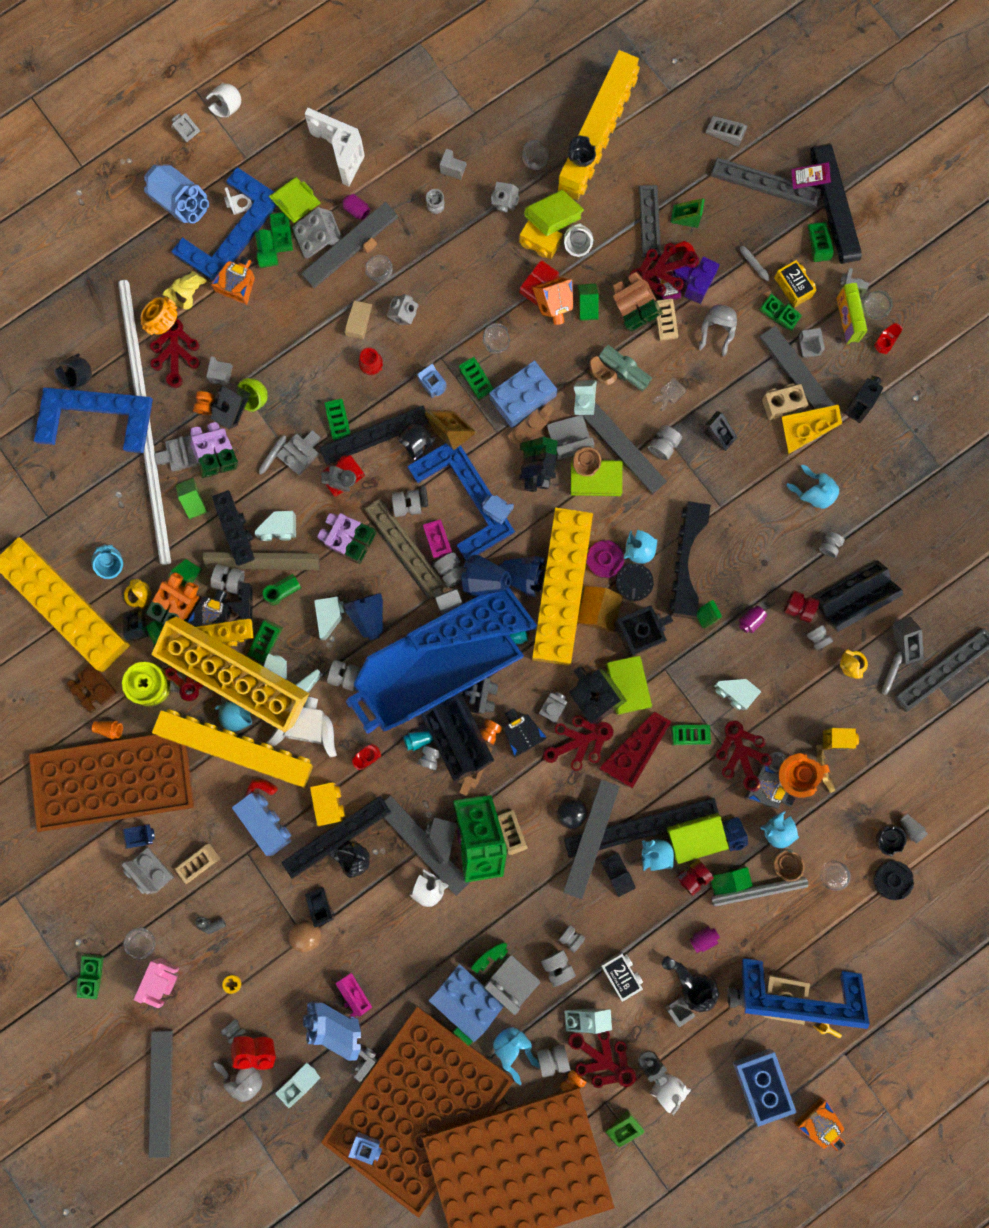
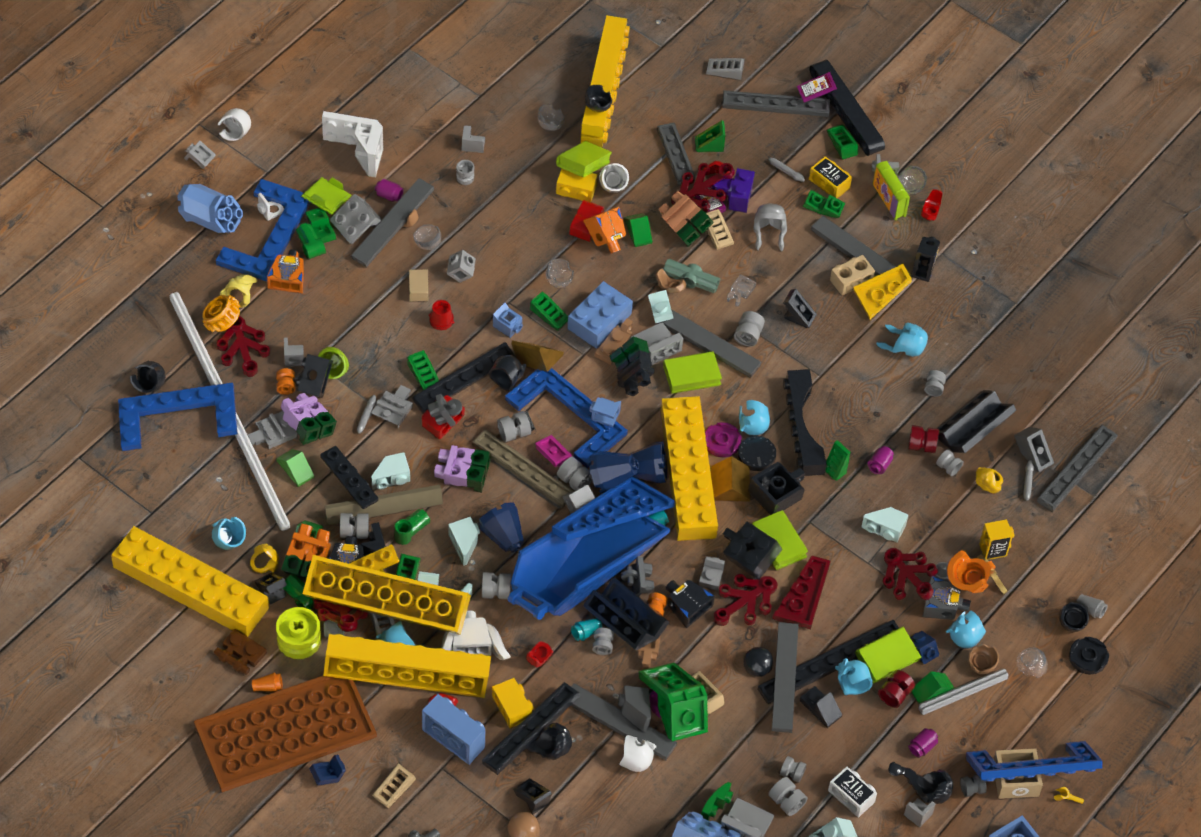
camera: 20 degrees left, 25 degrees down
(147, 872) = (346, 801): light grey bracket -> none
(505, 197) = (532, 155): light grey brick -> none
(586, 461) = (680, 353): medium nougat hair -> none
(675, 735) = (841, 579): green slope -> none
(811, 342) = (861, 222): light grey panel -> none

